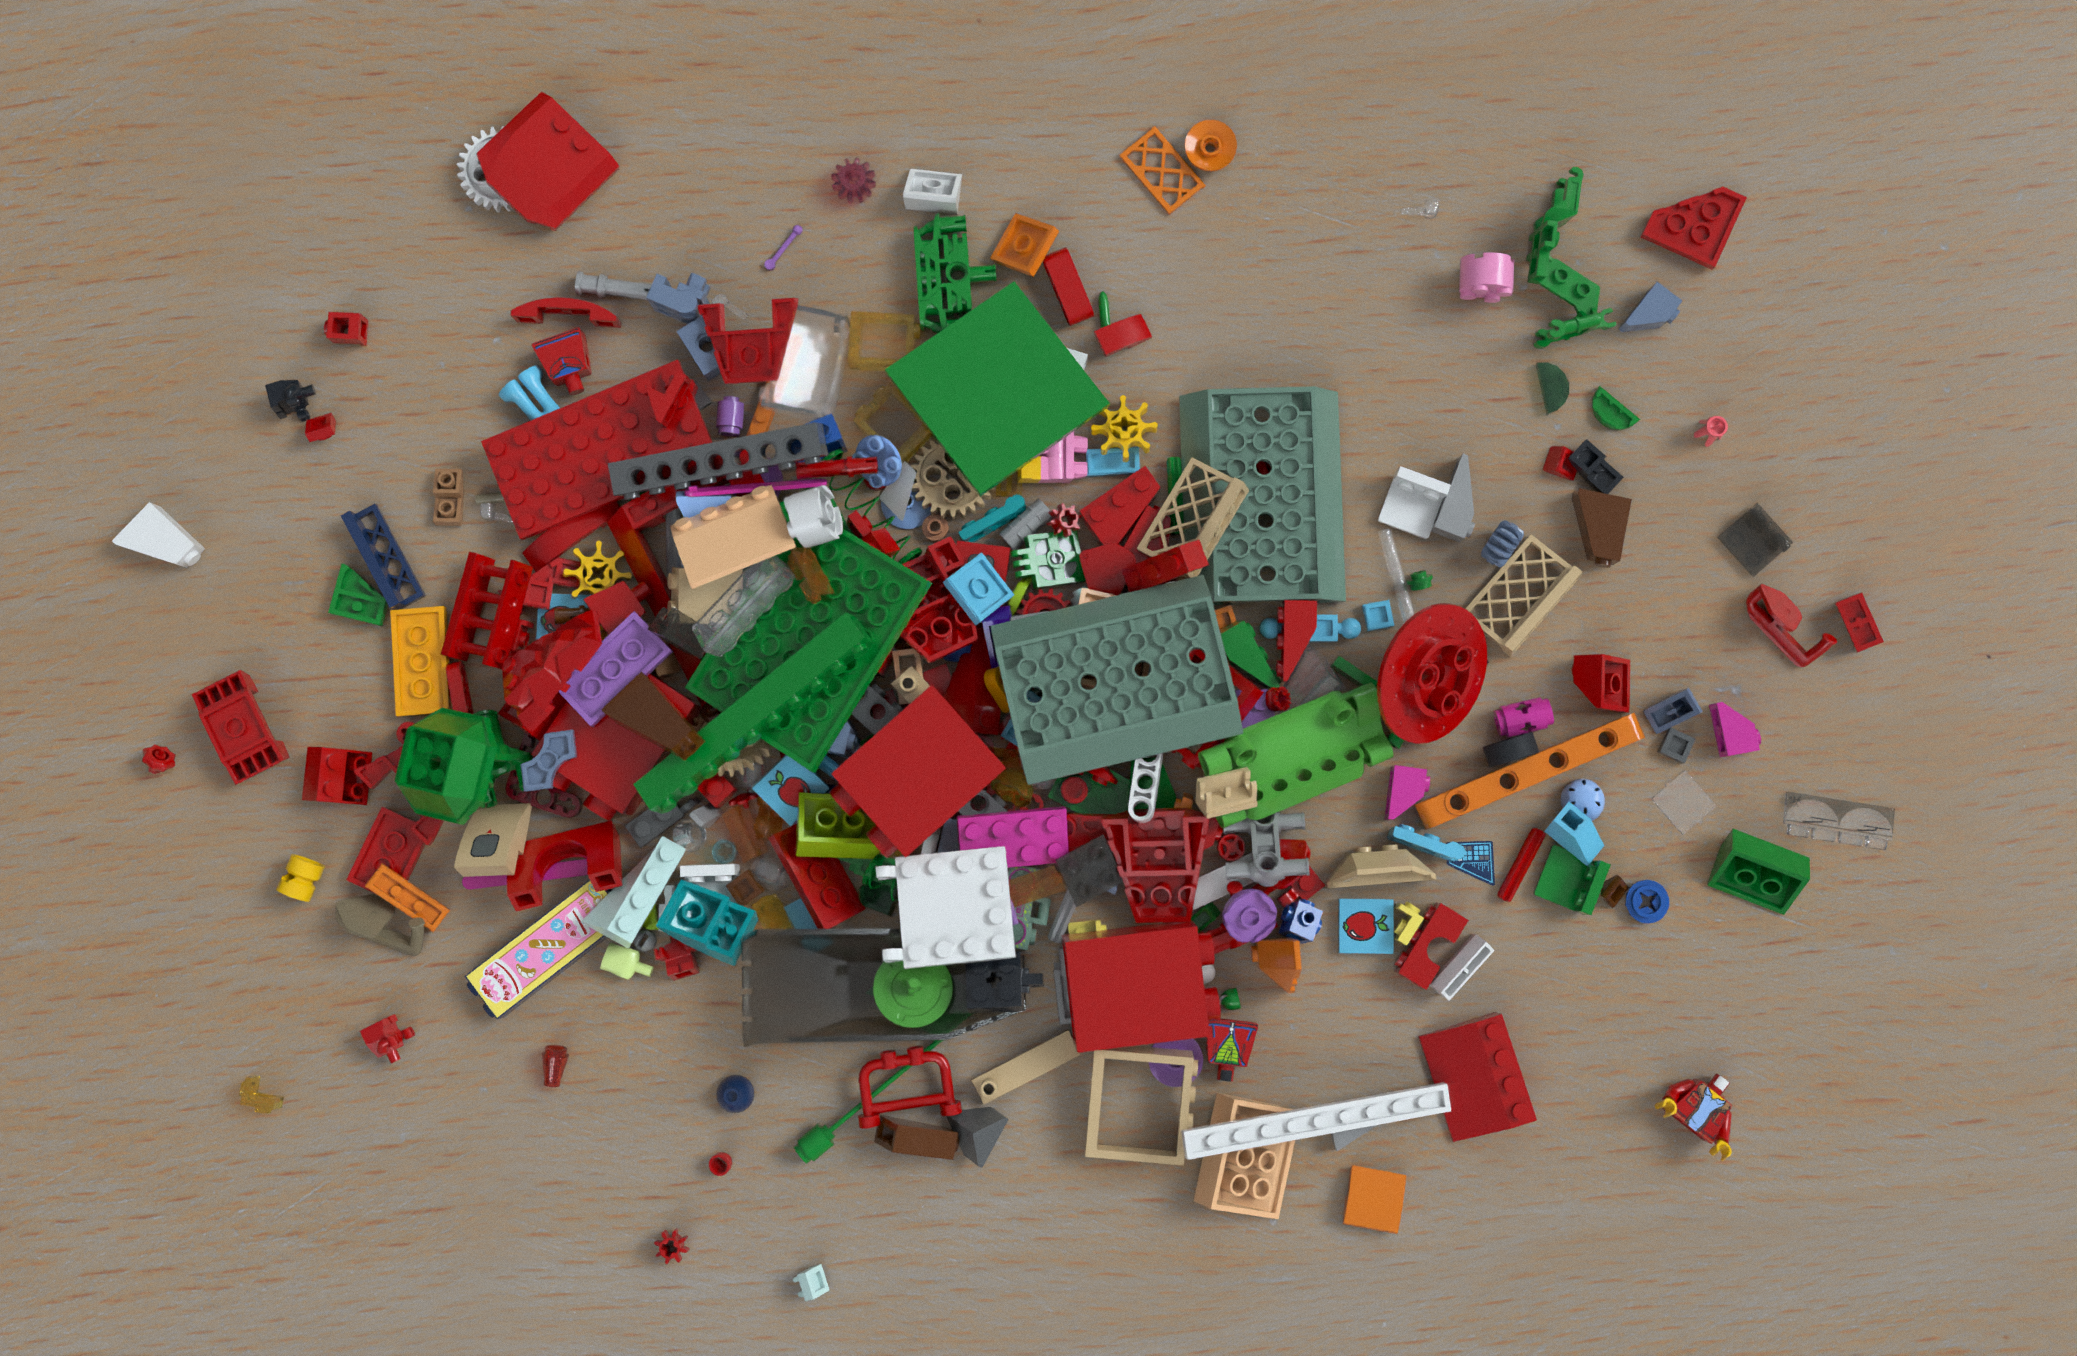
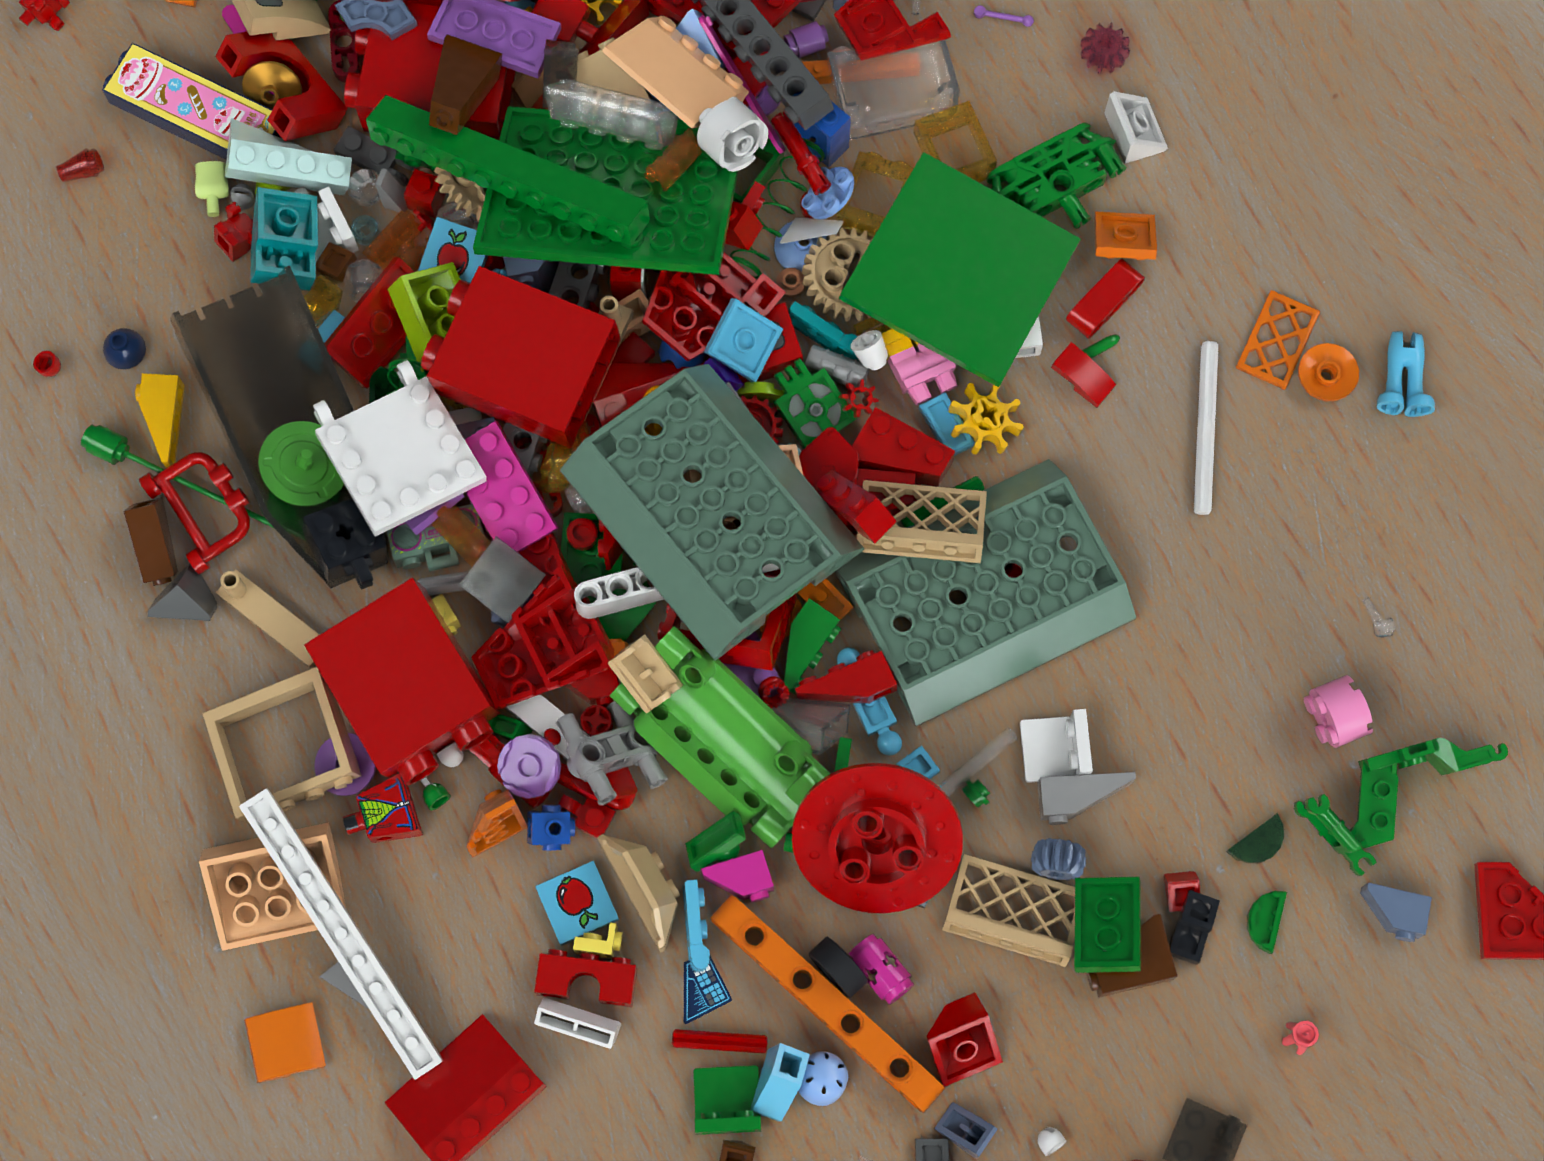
camera: 60 degrees right, 10 degrees down
(563, 875) = (270, 77): none -> pearl gold dish
(804, 1084) = (161, 405): none -> yellow slope
(1029, 491) = (870, 349): none -> white hat
(1209, 262) = (1206, 428): none -> white axle
(1232, 76) = (1411, 358): none -> medium azure piece
(1371, 797) = (717, 842): none -> green tile
(1571, 531) = (1107, 924): none -> green plate
(1705, 652) = (1050, 1140): none -> white hinge

